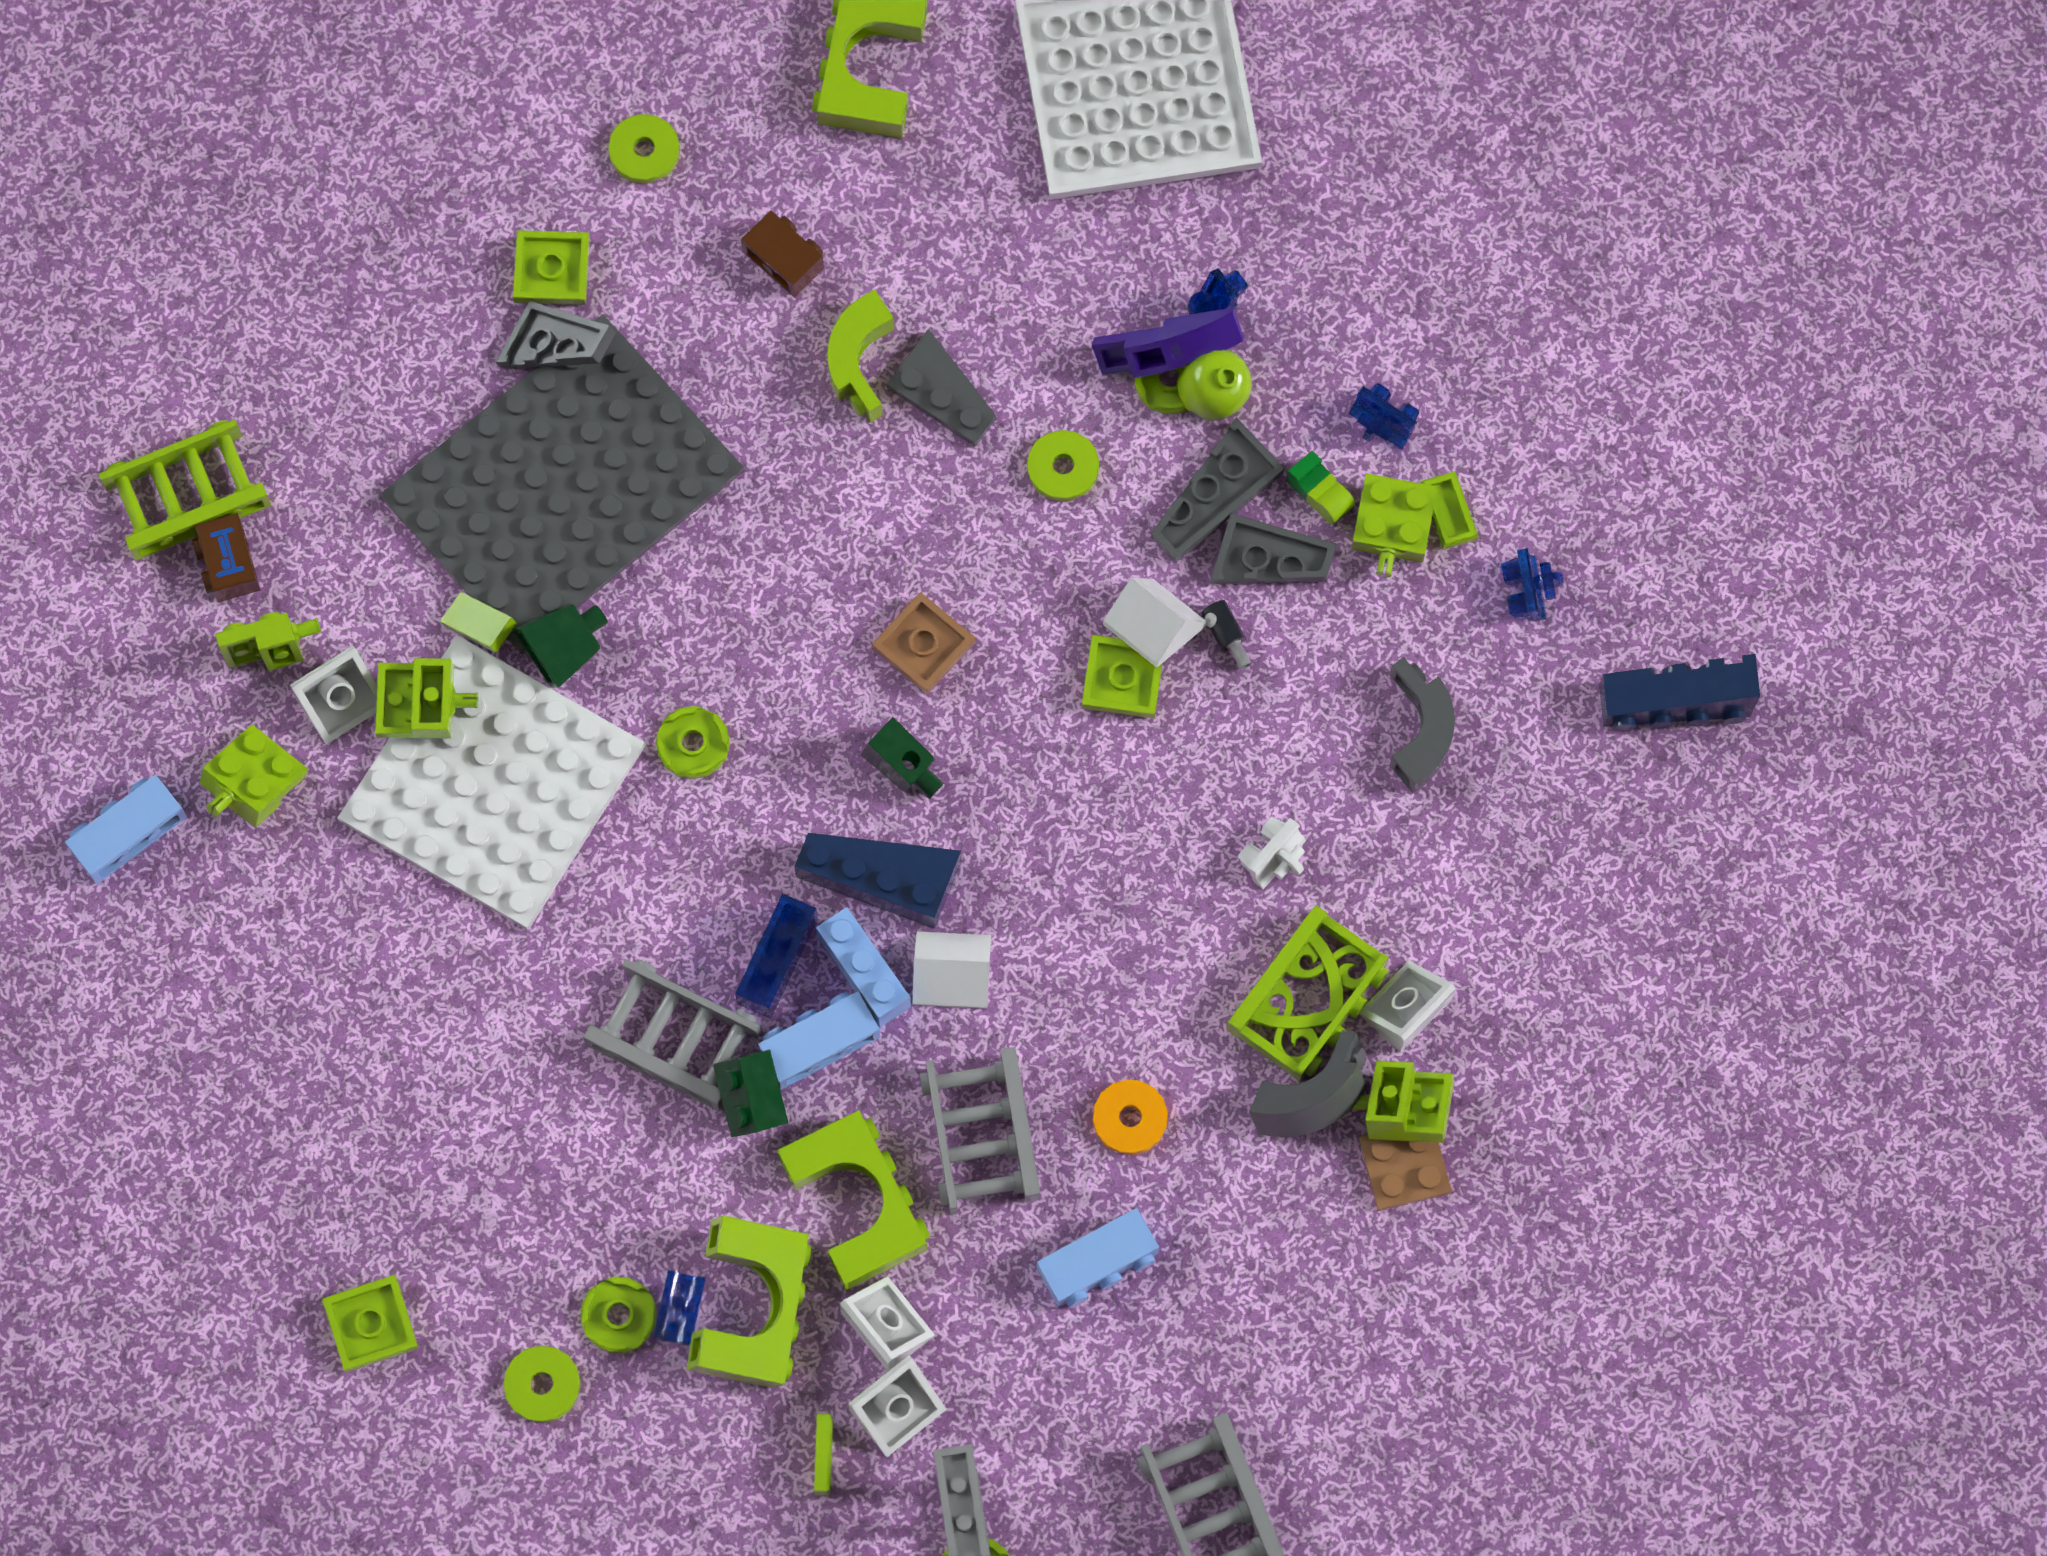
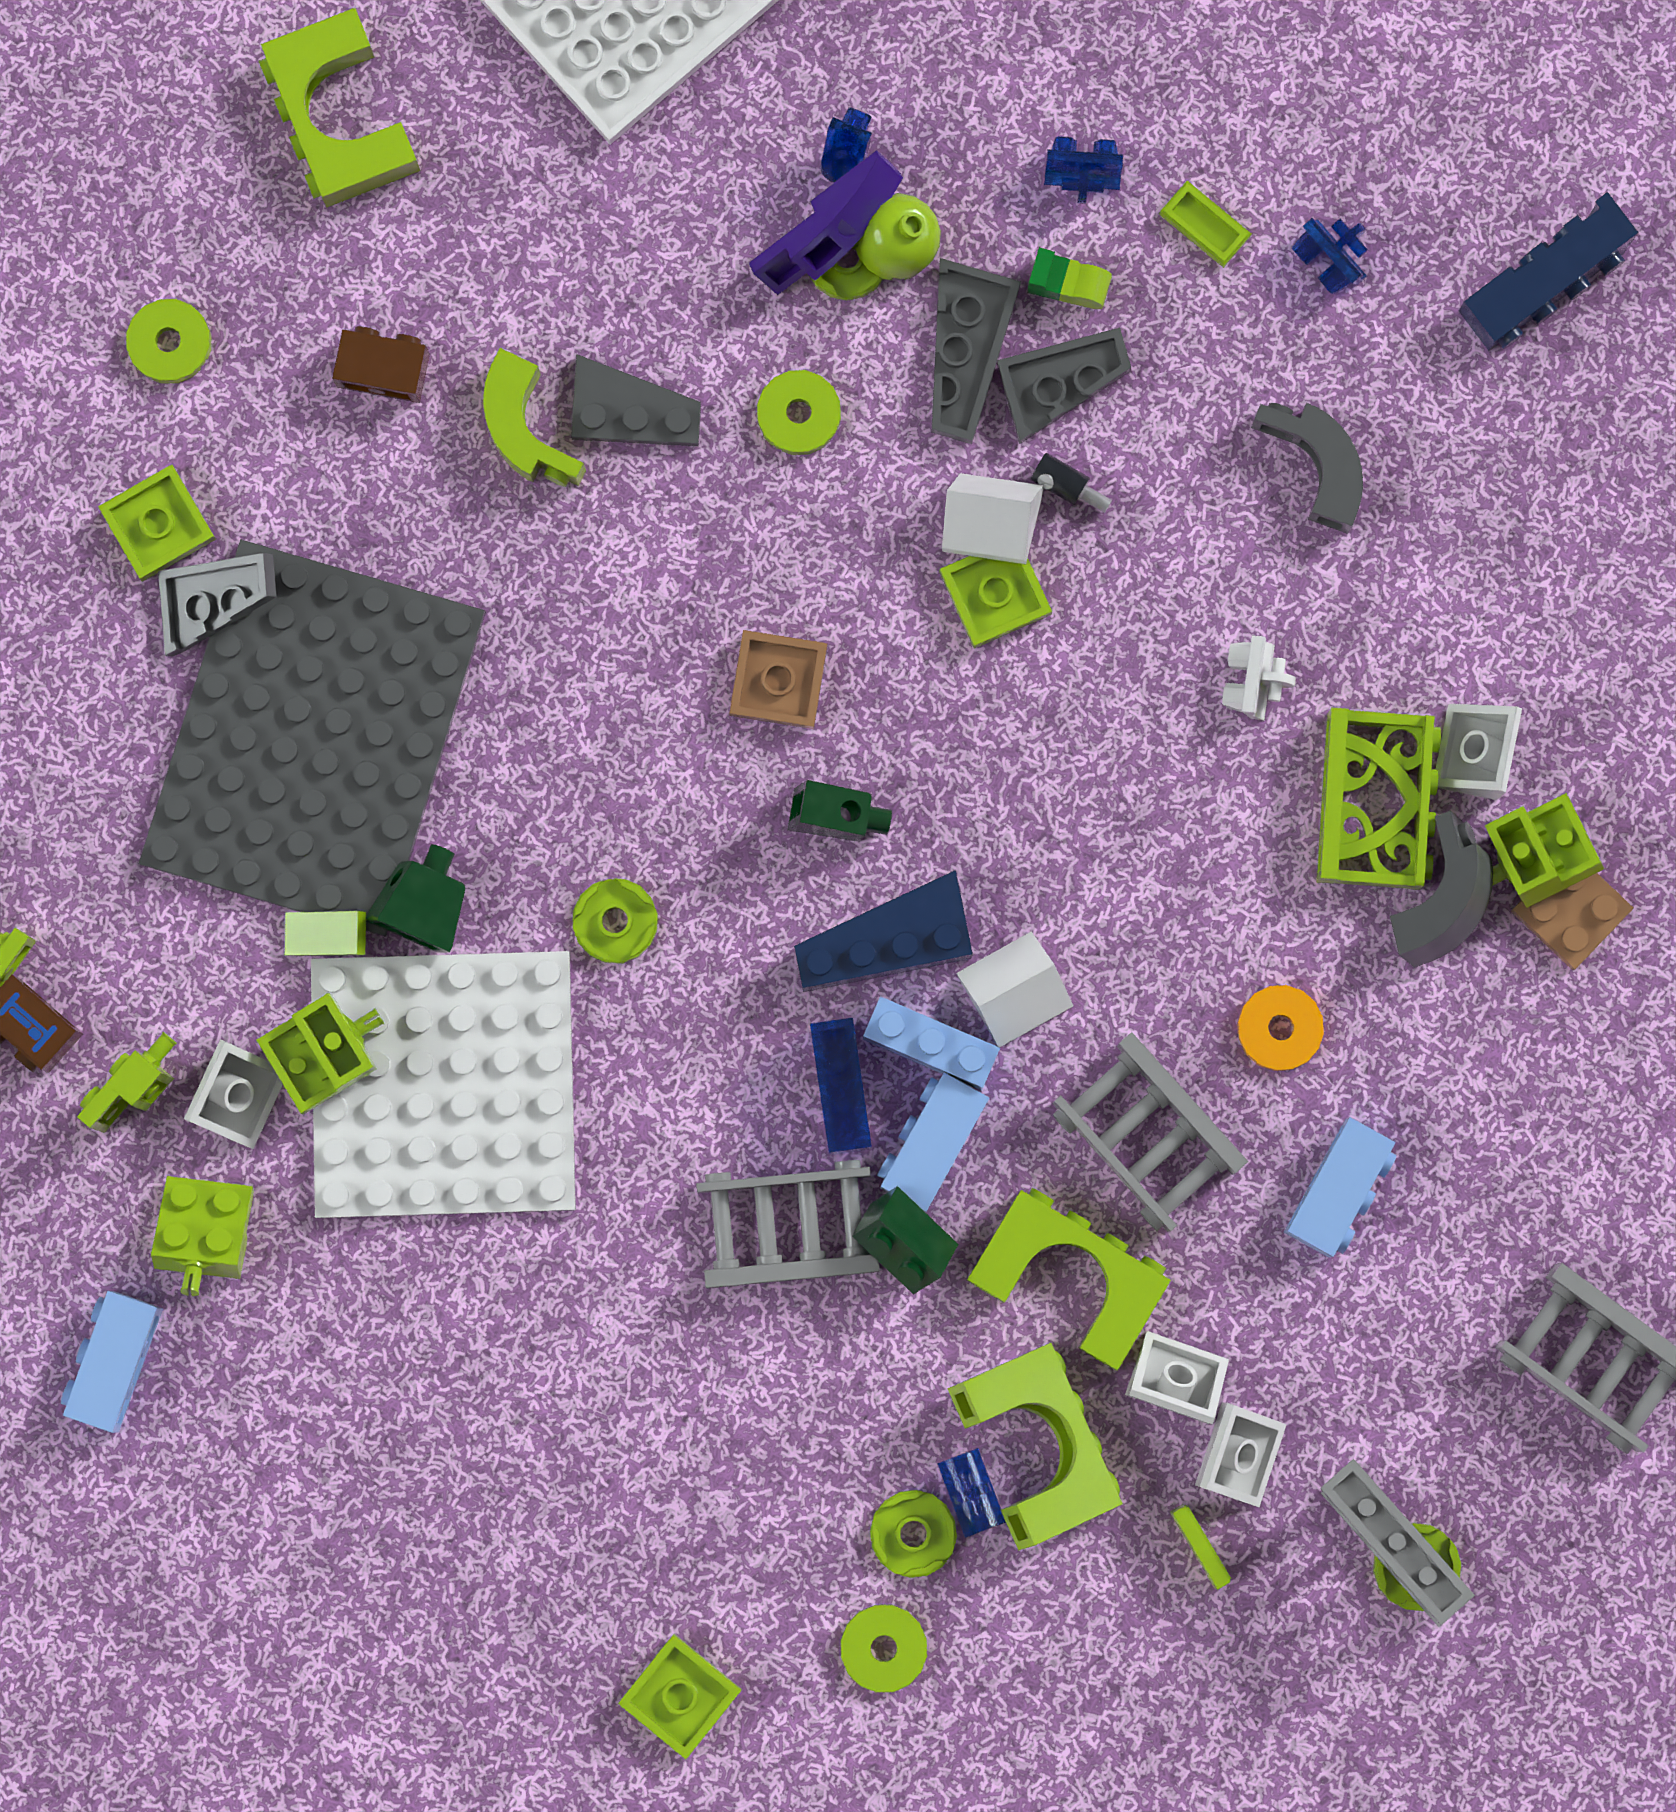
camera: 30 degrees left, 10 degrees up
(1394, 520) = (1160, 268): lime plate -> none

